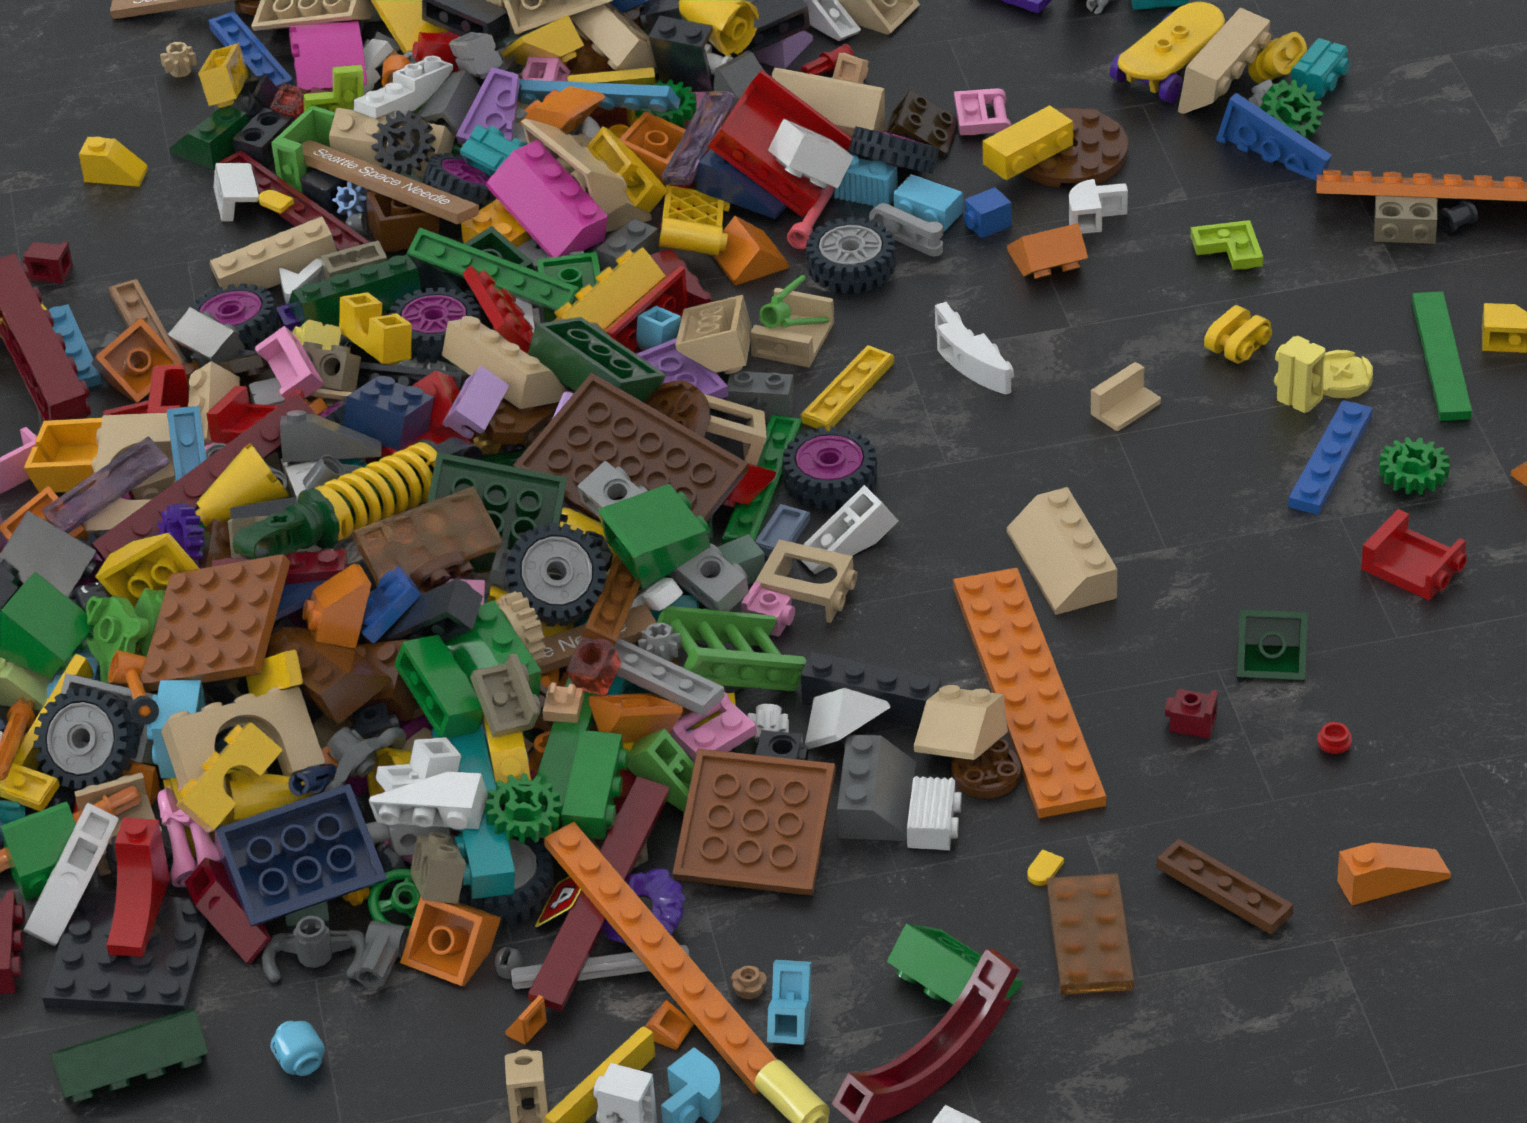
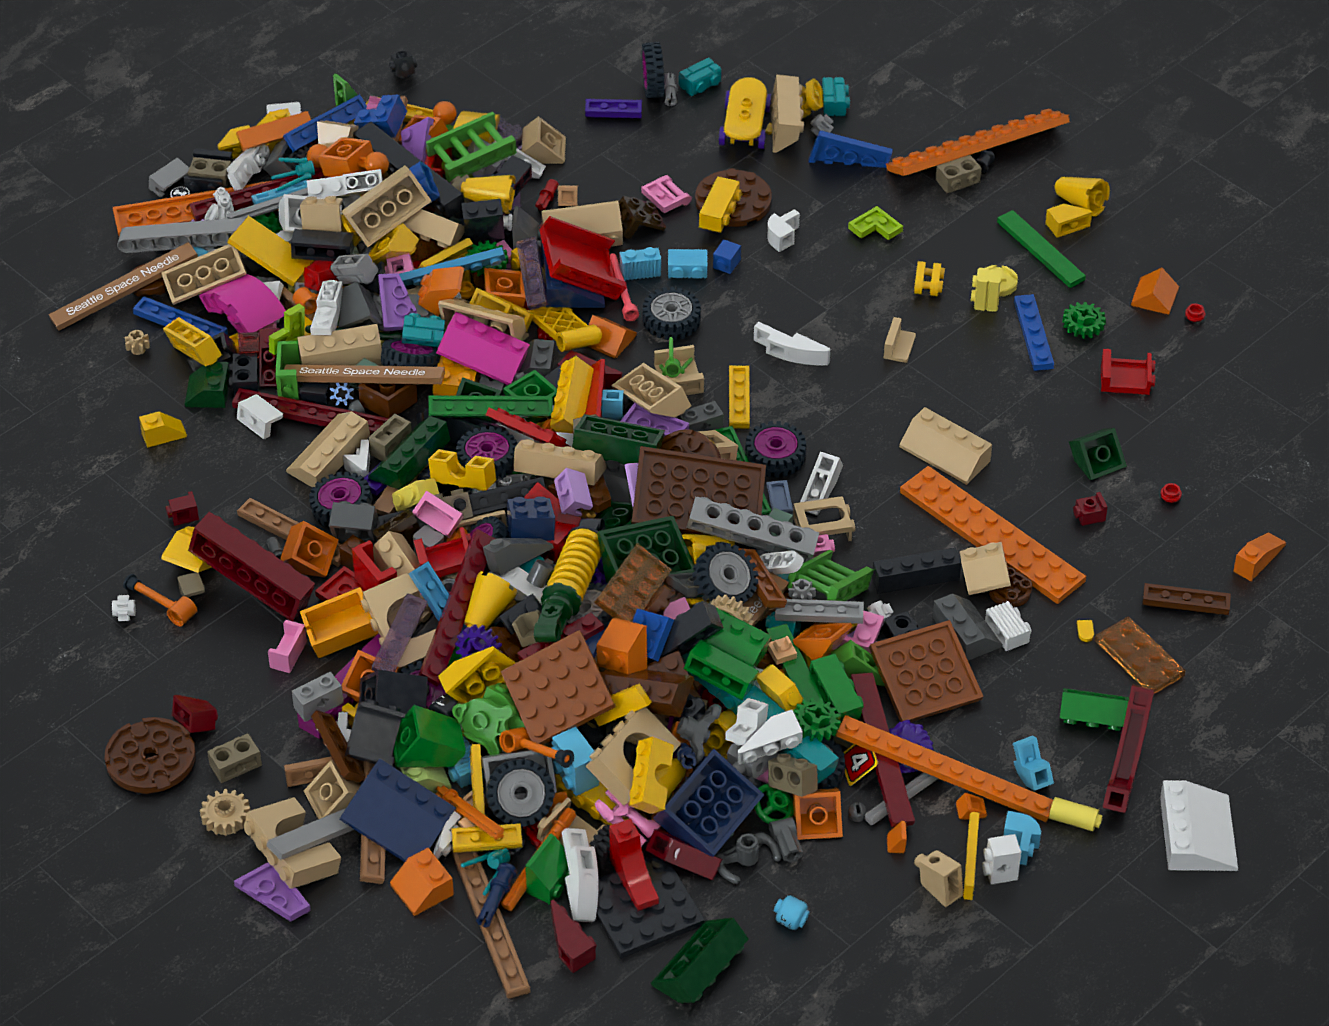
camera: 35 degrees left, 5 degrees up
(275, 201) = (294, 412): yellow piece -> none
(412, 130) = (371, 347): black gear -> none
(506, 697) = (771, 658): dark tan bracket -> none
(594, 665) = (786, 628): clear red brick -> none
(654, 533) = (760, 528): green slope -> none
(748, 982) = (993, 767): medium nougat plate -> none
(810, 155) = (611, 259): white brick -> none
(839, 714) = (919, 593): white slope -> none
(894, 149) = (648, 237): black wheel -> none
(909, 229) = (695, 284): light grey plate -> none
(1049, 250) = (782, 267): orange slope -> none
(1294, 108) = (844, 125): green gear -> none

